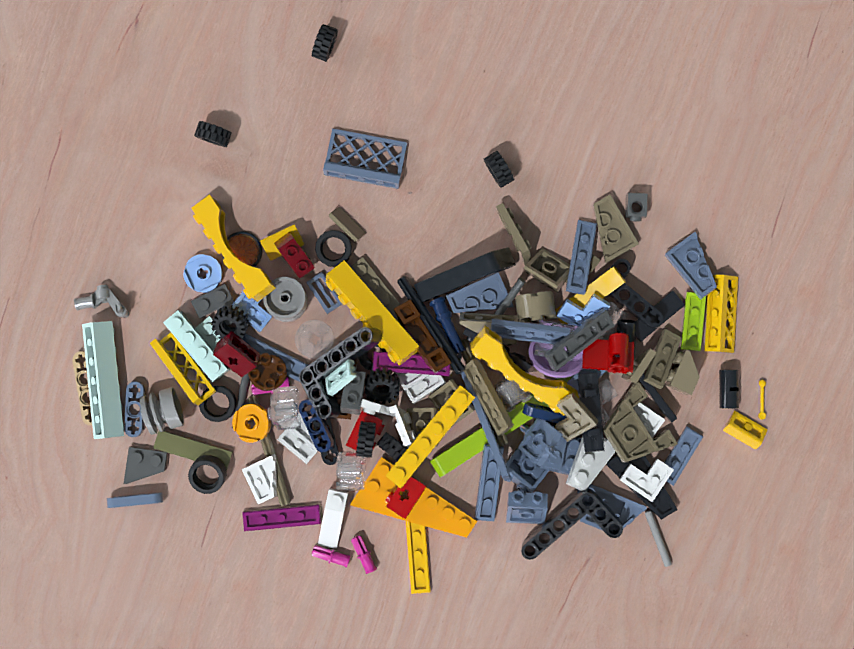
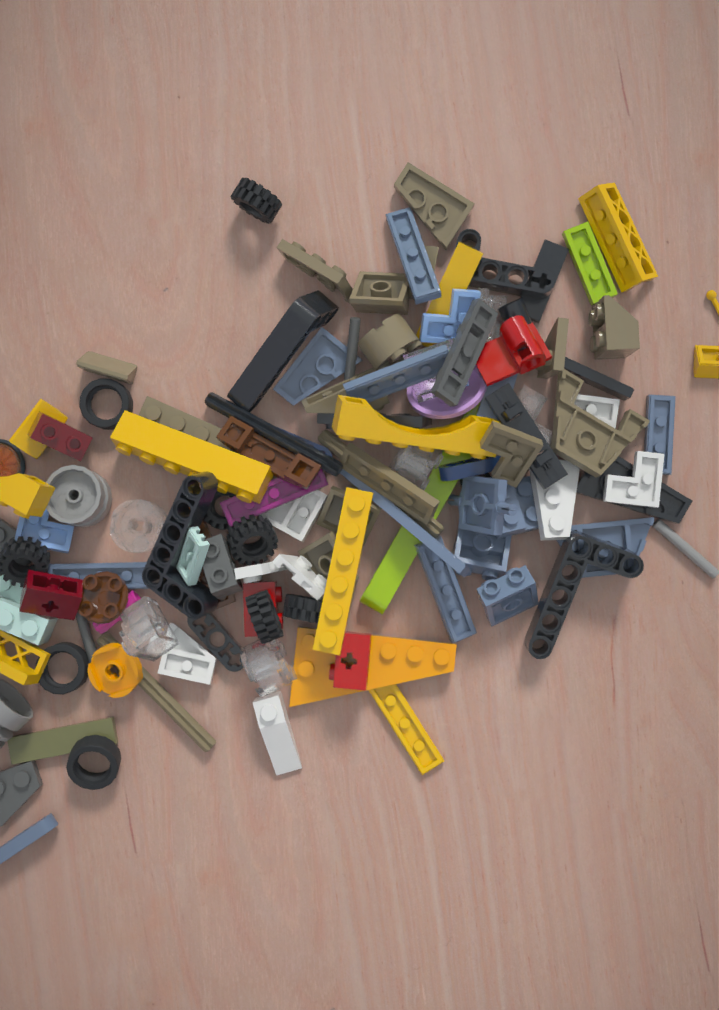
camera: 25 degrees left, 0 degrees up
(262, 479) = (165, 731): white wing -> none
(281, 517) = (214, 766): magenta tile -> none
(308, 423) = (184, 632): dark blue beam -> none
(331, 556) = (299, 781): dark pink axle -> none
(333, 306) = (143, 474): sand blue tile -> none
(360, 174) = (89, 296): sand blue fence -> none
(363, 554) = (338, 758): dark pink axle -> none
(444, 316) = (285, 416): dark blue pin -> none
(641, 199) = (447, 149): dark grey brick -> none
(662, 361) = (580, 336): dark tan plate -> none
(691, 265) = (551, 196): sand blue wing -> none
(729, 389) = (676, 321): black pin -> none

